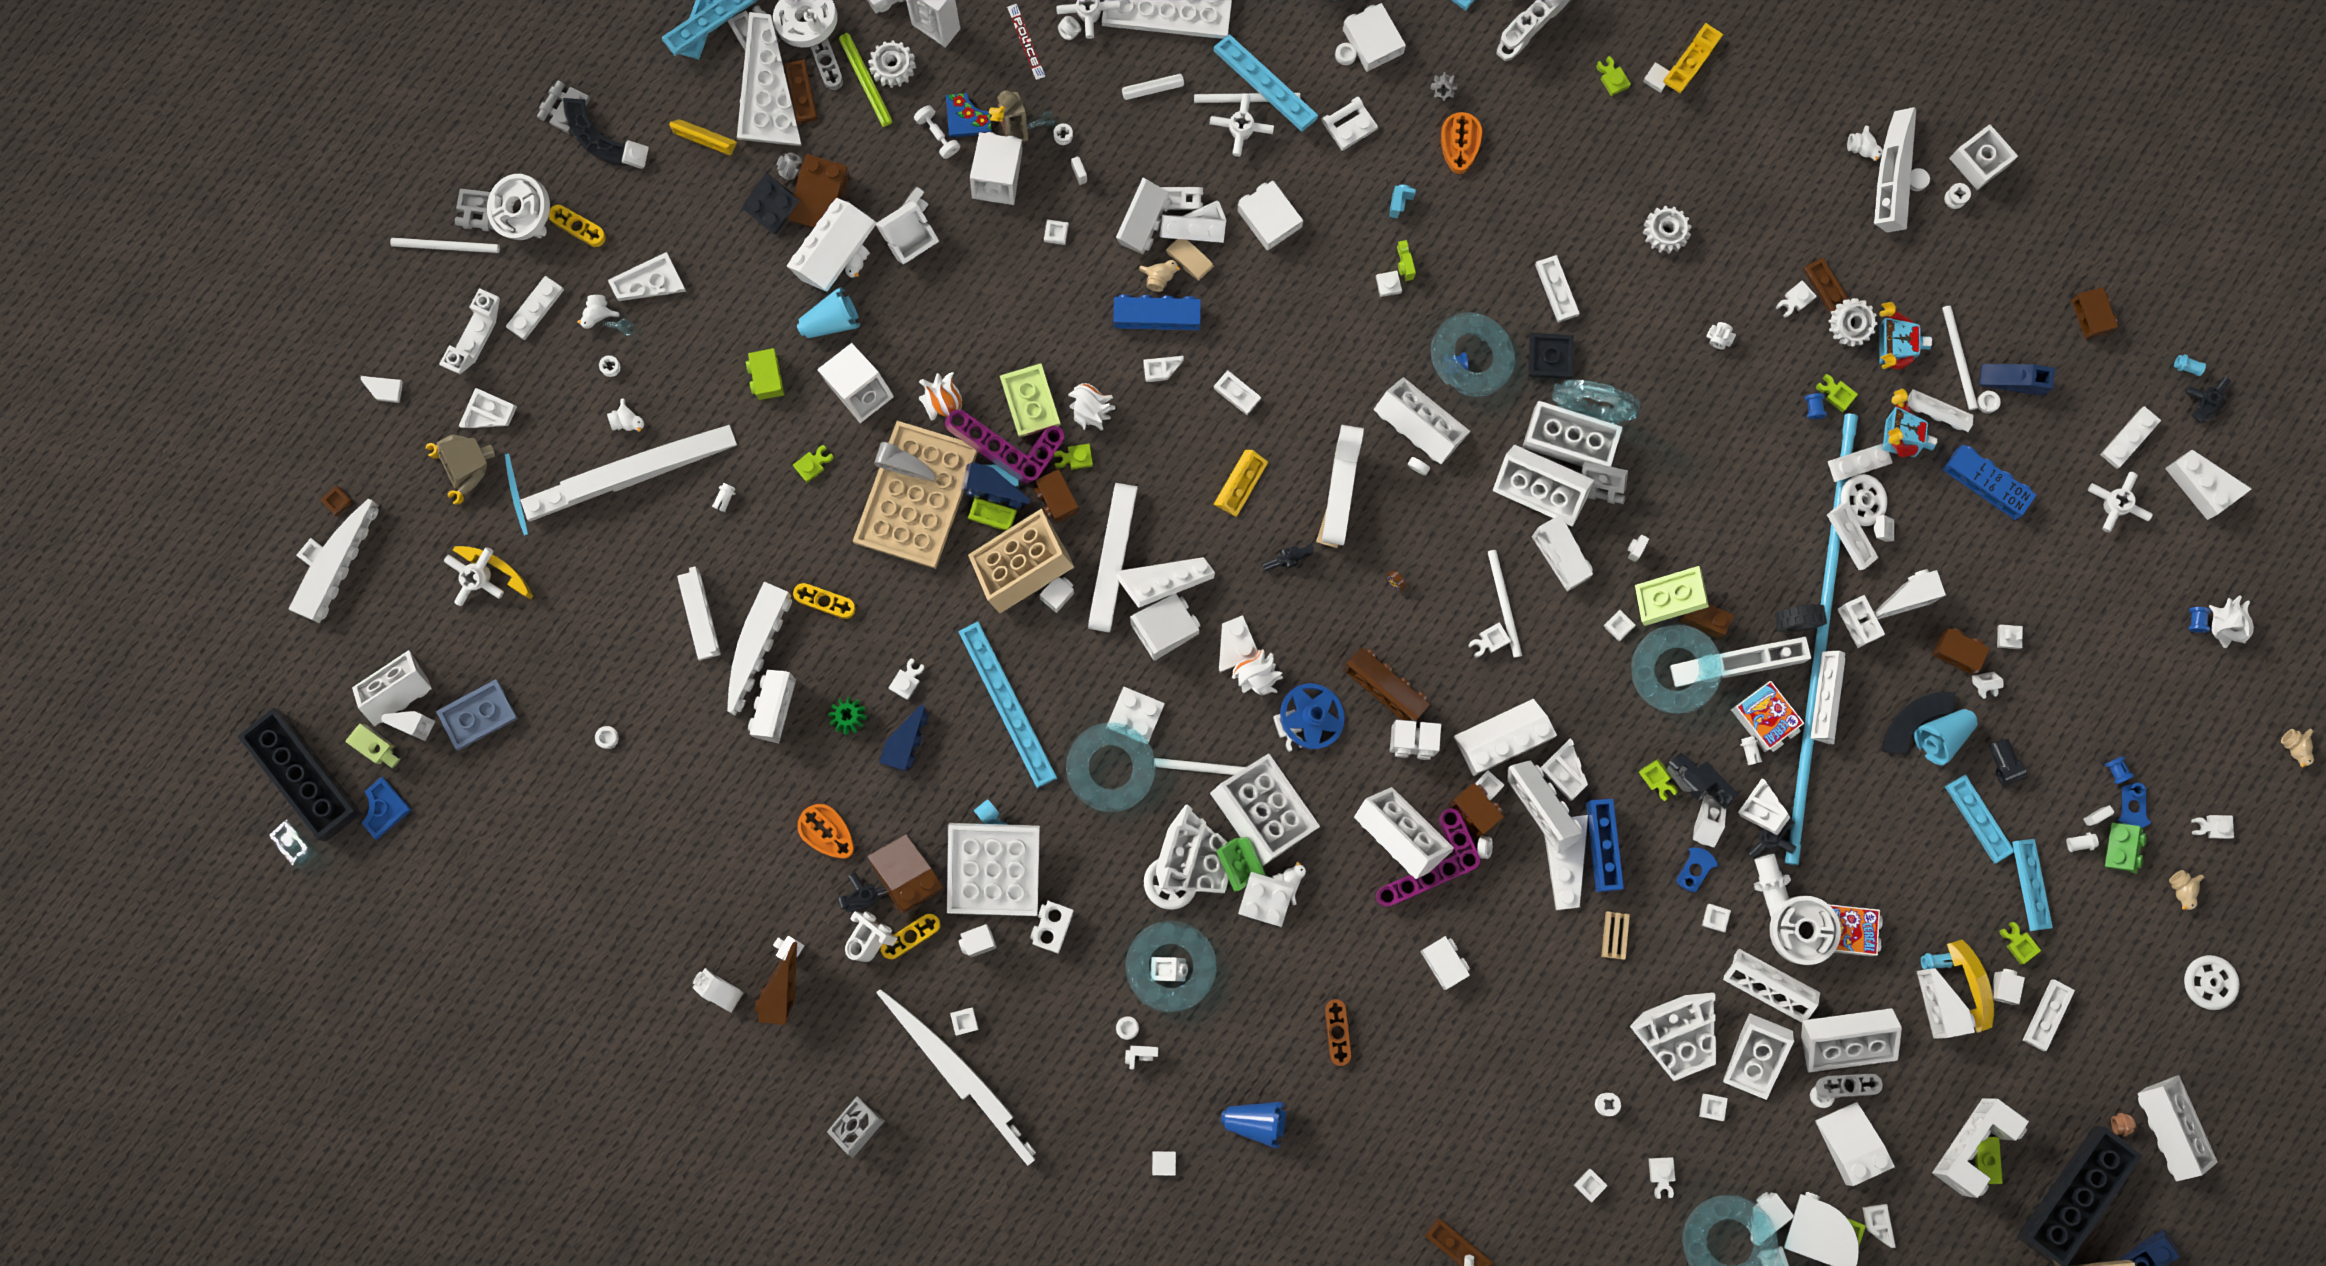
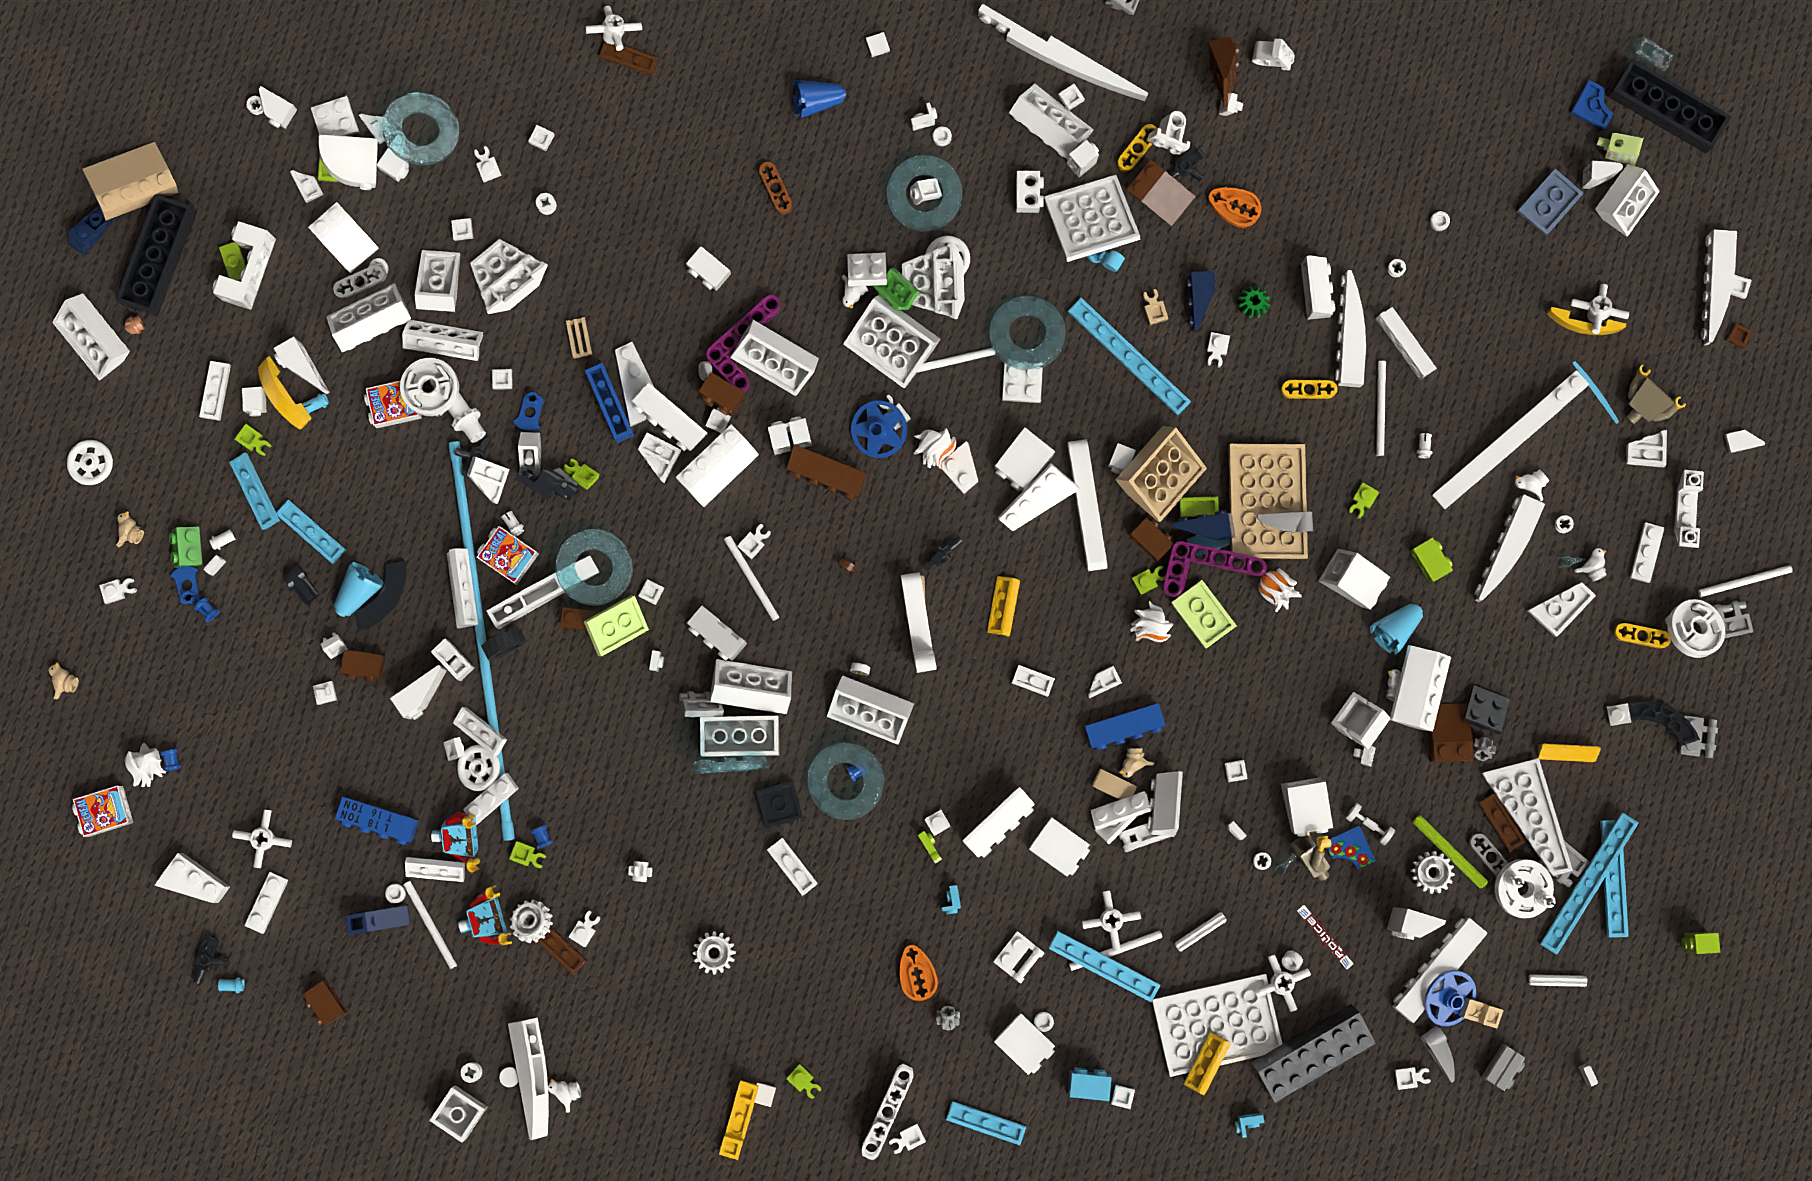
camera: 160 degrees right, 5 degrees up
(674, 362) = (1511, 543): none -> white slope
(682, 700) = (1391, 270): none -> white bush
(754, 554) = (1381, 408): none -> white piece
(959, 744) = (1155, 310): none -> tan plate
(997, 1000) = (1050, 121): none -> white slope
(1326, 259) = (998, 822): none -> white slope
(2287, 589) = (102, 811): none -> brick

